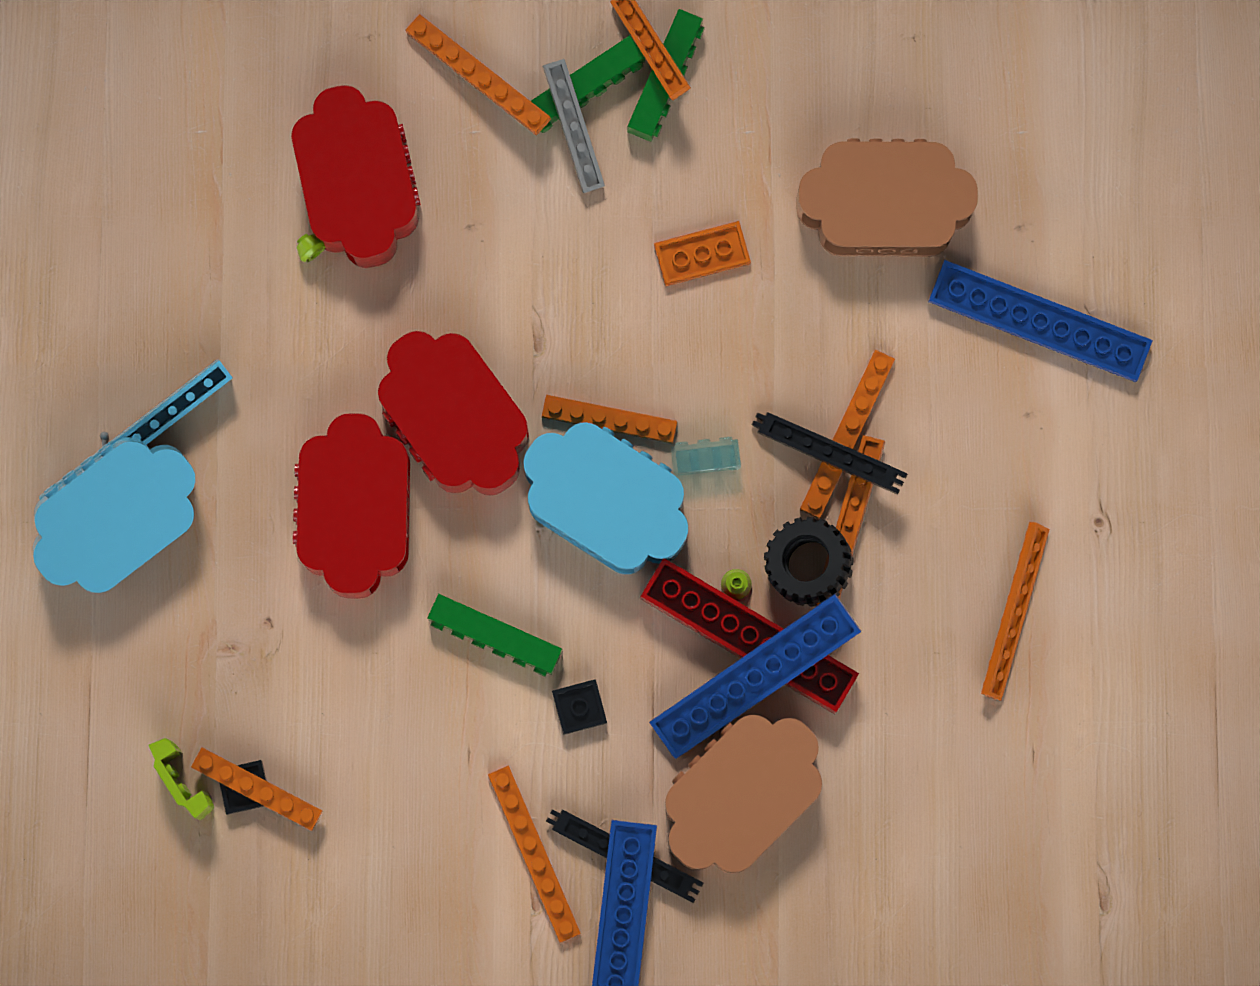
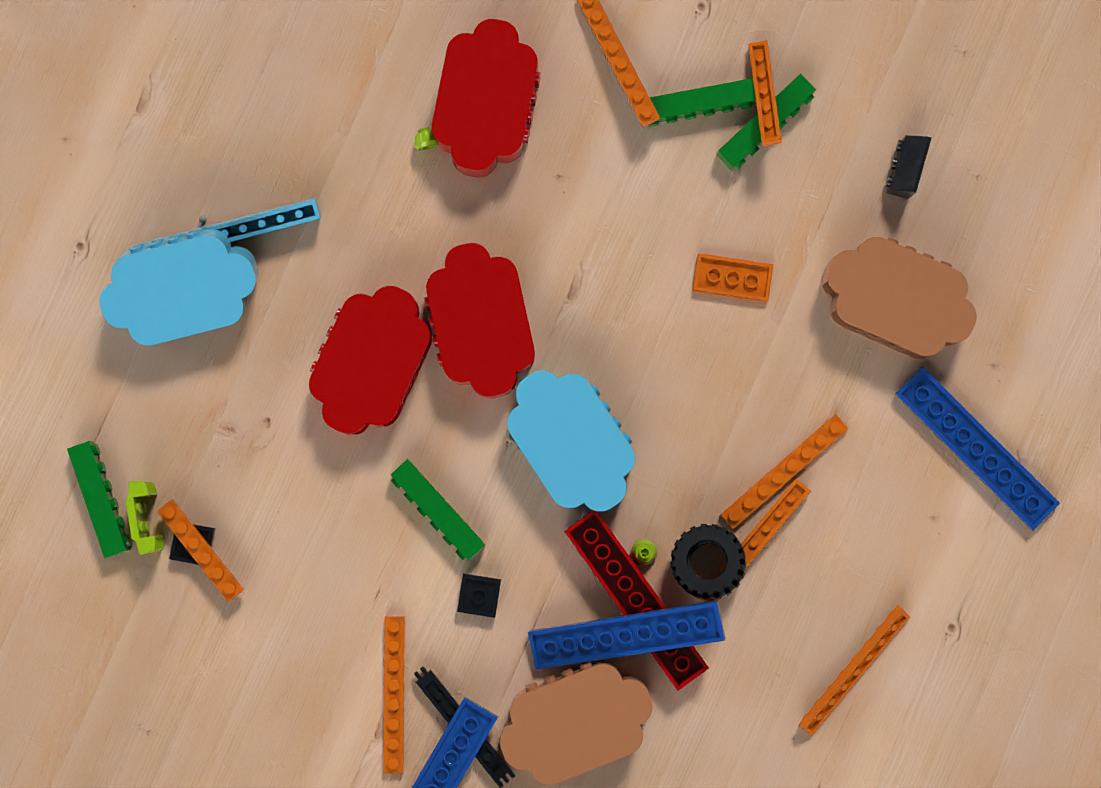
camera: 25 degrees right, 5 degrees up
(121, 783) = (99, 499): none -> green brick
(573, 125) = (675, 132): light grey plate -> none
(611, 418) = (601, 378): orange plate -> none
(705, 456) = (664, 441): clear light blue brick -> none
(829, 452) = (763, 481): black hinge -> none
(834, 57) = (908, 166): none -> black slope

